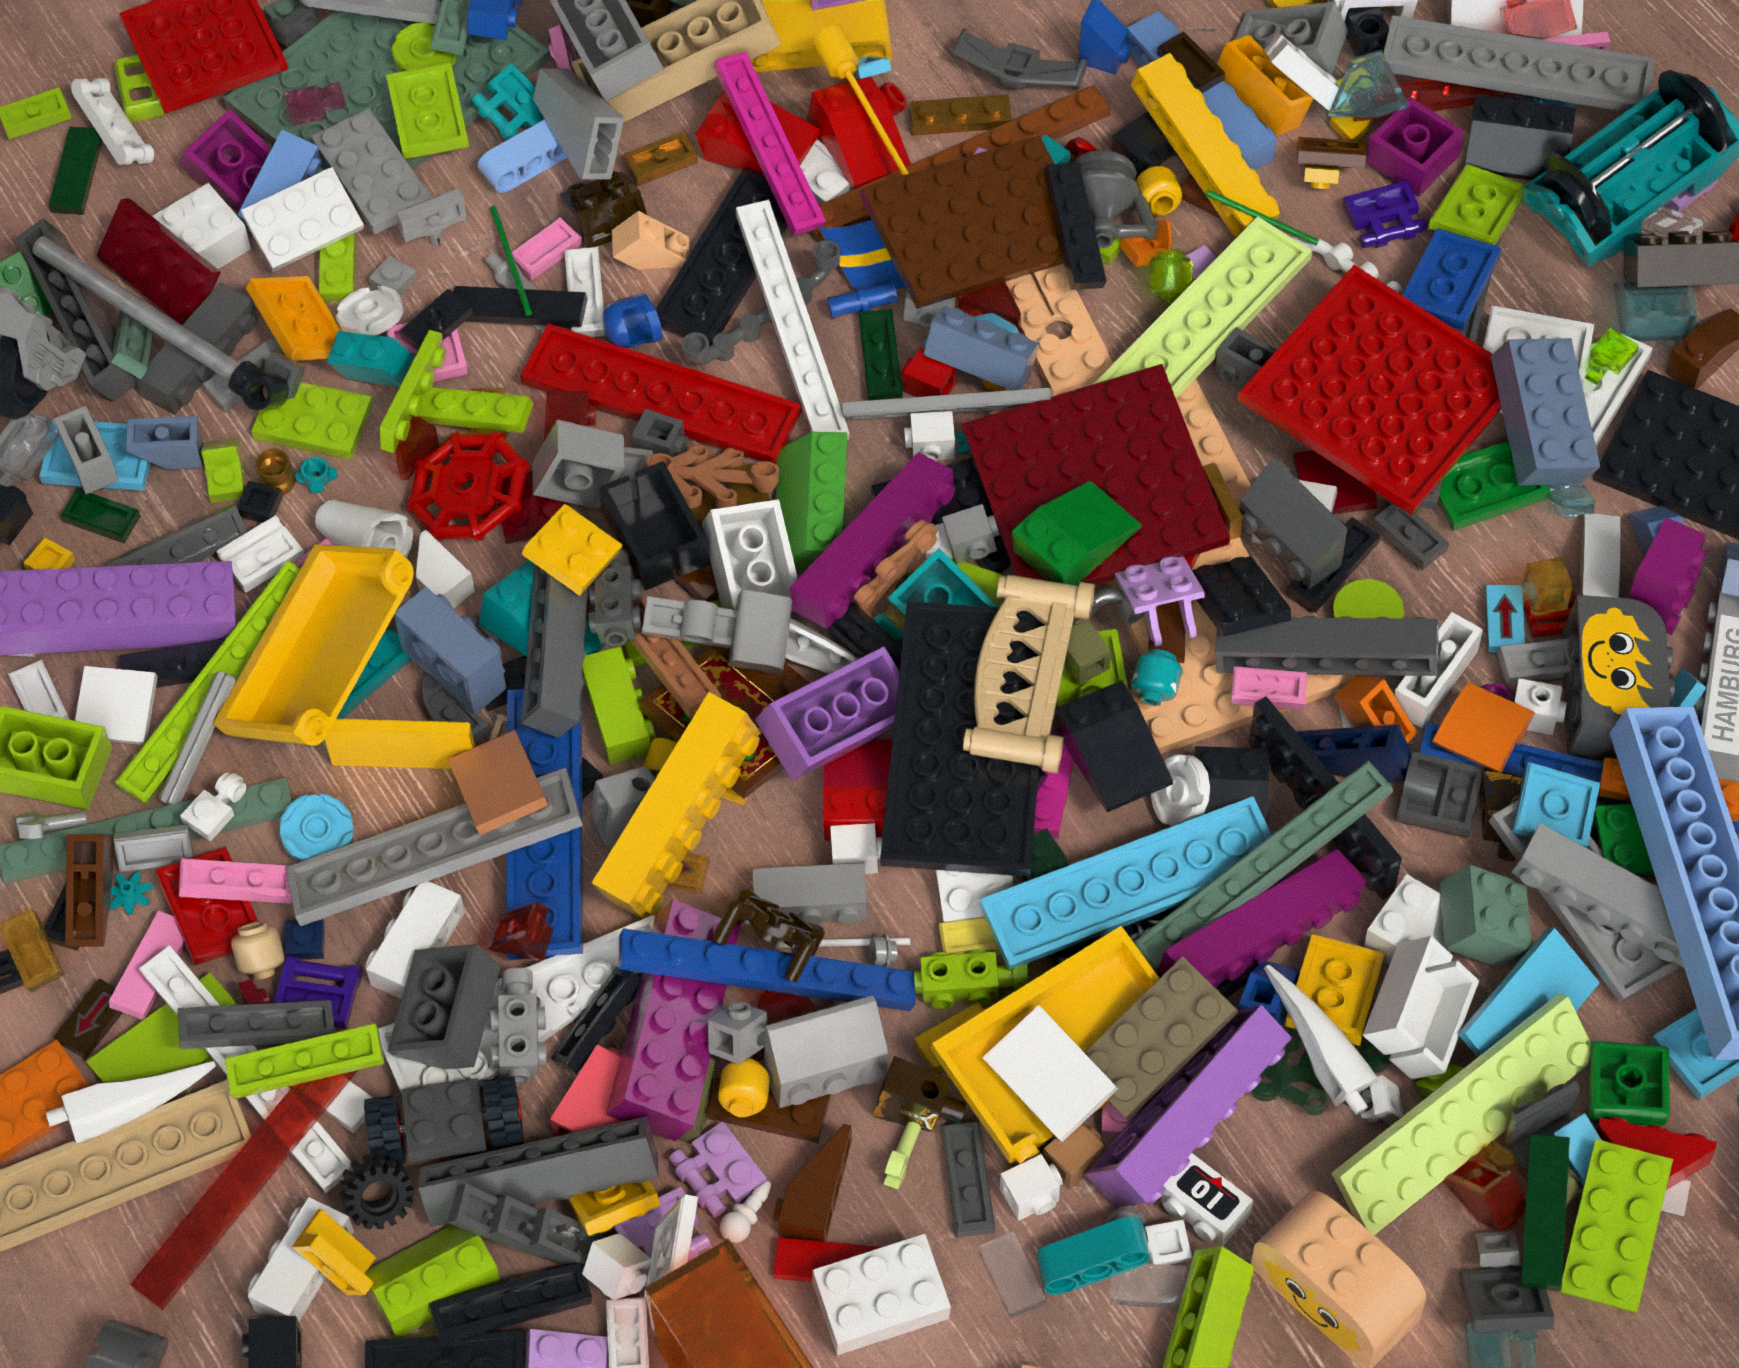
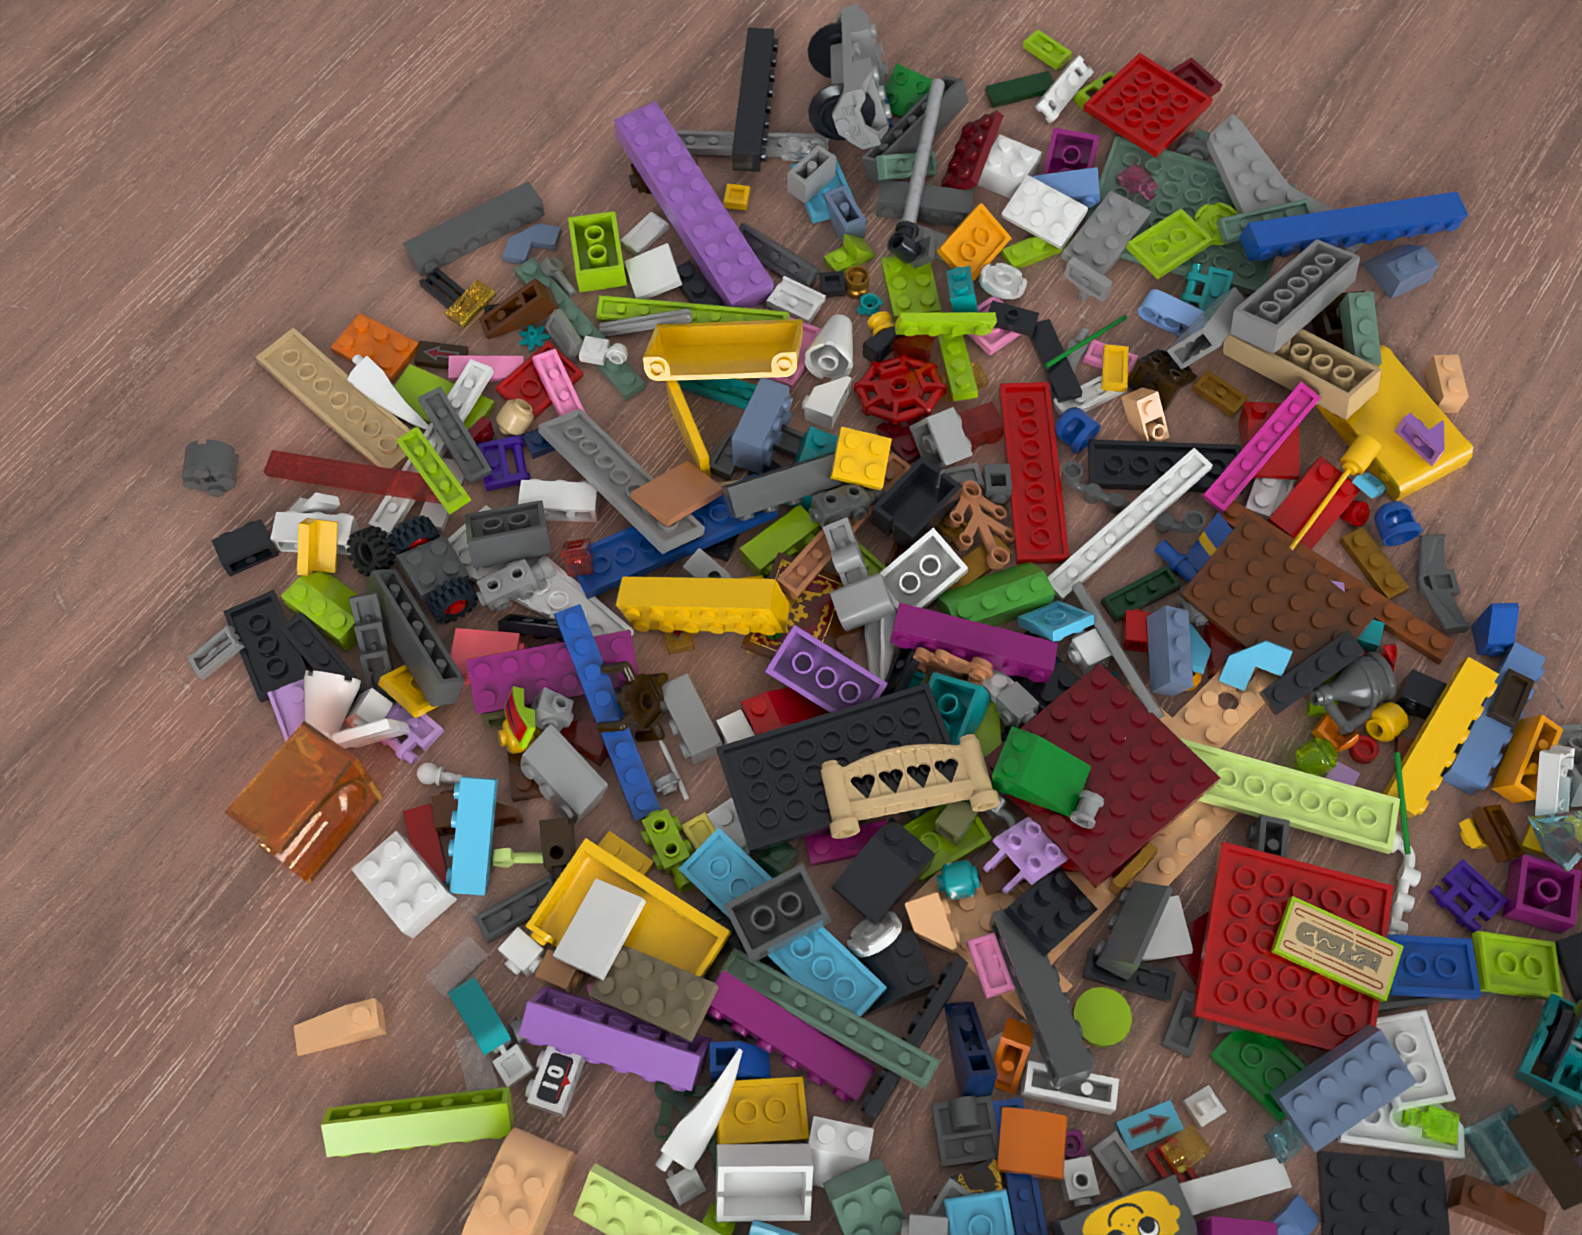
camera: 65 degrees right, 5 degrees up
(100, 515) = (783, 210): dark green tile -> none
(252, 1262) = (317, 503): none -> white slope
(315, 826) = (616, 413): medium azure tile -> none
(359, 471) = (879, 322): none -> yellow wheel
(390, 486) = (880, 345): none -> black slope
(394, 275) = (1038, 284): light grey plate -> none
(566, 247) = (1114, 368): none -> yellow tile
(592, 1305) = (328, 700): none -> white cone
(728, 1163) = (475, 750): lavender plate -> none
(735, 1065) = (519, 718): none -> slope
(858, 1181) = (473, 835): none -> medium azure brick
(880, 448) = (1056, 620): none -> medium azure plate
(925, 67) = (1396, 523): none -> blue helmet
(1030, 287) = (1263, 655): none -> medium azure tile
(1124, 864) = (777, 913): none -> dark grey brick
(1142, 503) = (1087, 809): none -> light grey bush
(1182, 229) = (1364, 750): none -> red tile
(1195, 723) = (930, 922): none -> light nougat slope
(1400, 345) = (1337, 949): none -> tile
(1504, 558) = (1204, 1106): none -> white tile

